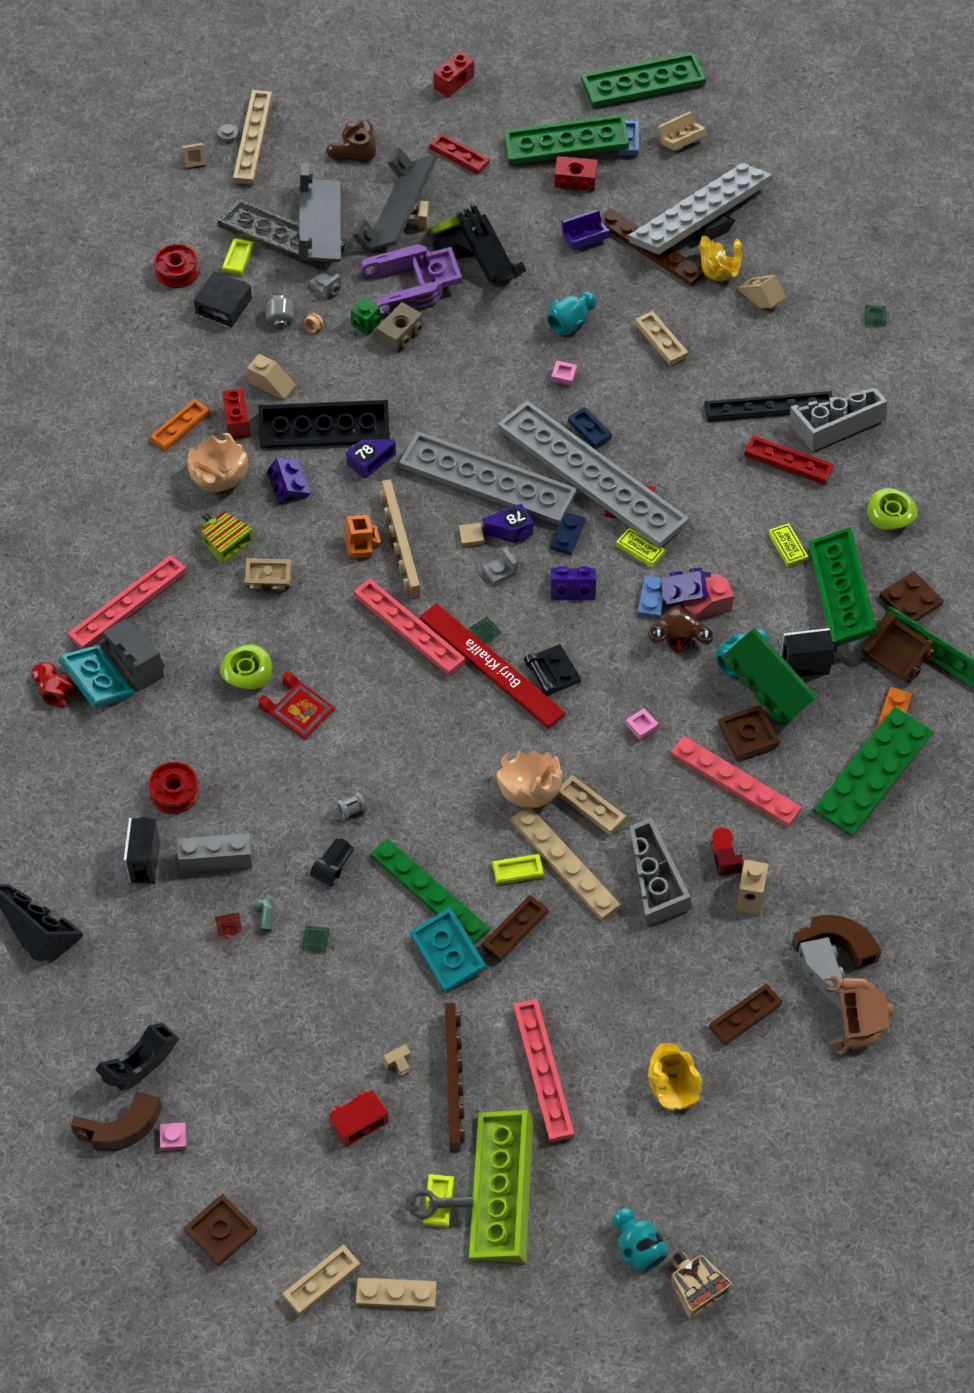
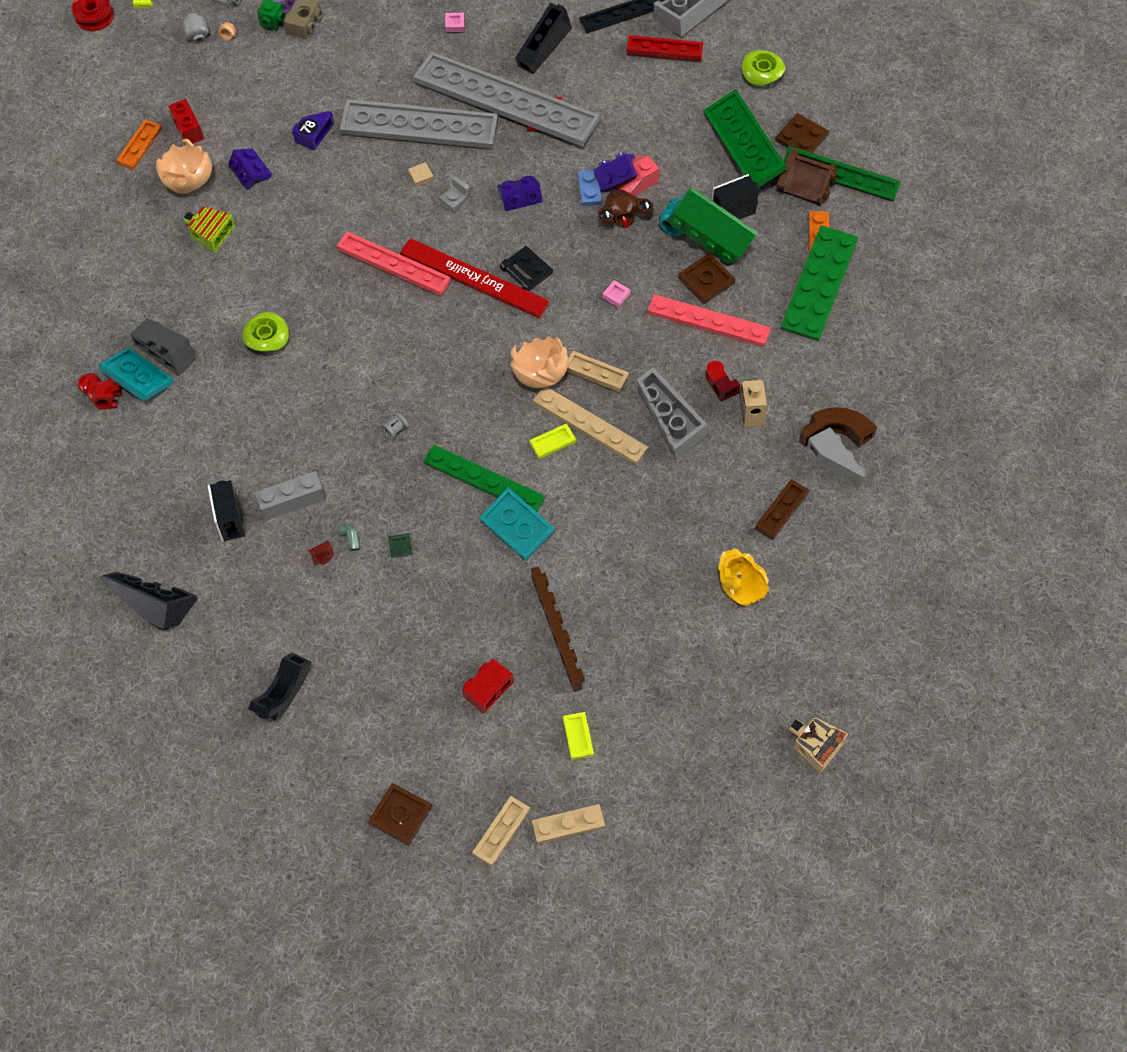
camera: 15 degrees left, 5 degrees up
(124, 1131) = (288, 755): reddish brown arch -> none
(127, 602) = (142, 304): coral plate -> none
(173, 775) = (235, 439): red wheel -> none
(173, 1136) = (332, 746): bright pink plate -> none
(223, 299) = (142, 29): black piece -> none
(268, 573) = (257, 249): tan bracket -> none
(269, 377) = (204, 85): tan slope -> none
(299, 709) = (321, 356): red flag -> none
(322, 423) = (263, 112): black arch -> none
(330, 866) = (392, 480): black piece -> none
(360, 536) = (327, 198): orange brick -> none
(397, 1059) = (505, 627): tan tile -> none
(401, 545) = (364, 197): tan plate -> none
(460, 1203) = (599, 732): dark grey piece -> none
(485, 630) = (459, 250): clear green tile -> none
(501, 1187) = (627, 709): lime arch -> none
(509, 524) = (451, 157): dark purple slope -> none
(514, 928) = (566, 490): reddish brown plate -> none
(543, 1071) = (630, 602): coral plate -> none
(567, 533) = (501, 153): dark blue plate -> none
(589, 427) = (491, 61): dark blue plate -> none
(639, 1241) = (759, 721): teal piece -> none
(640, 548) = (566, 150): neon yellow tile -> none
(656, 416) = (544, 38): none -> black slope
(788, 545) = (687, 117): neon yellow tile -> none
(863, 1012) = (879, 480): nougat torso -> none

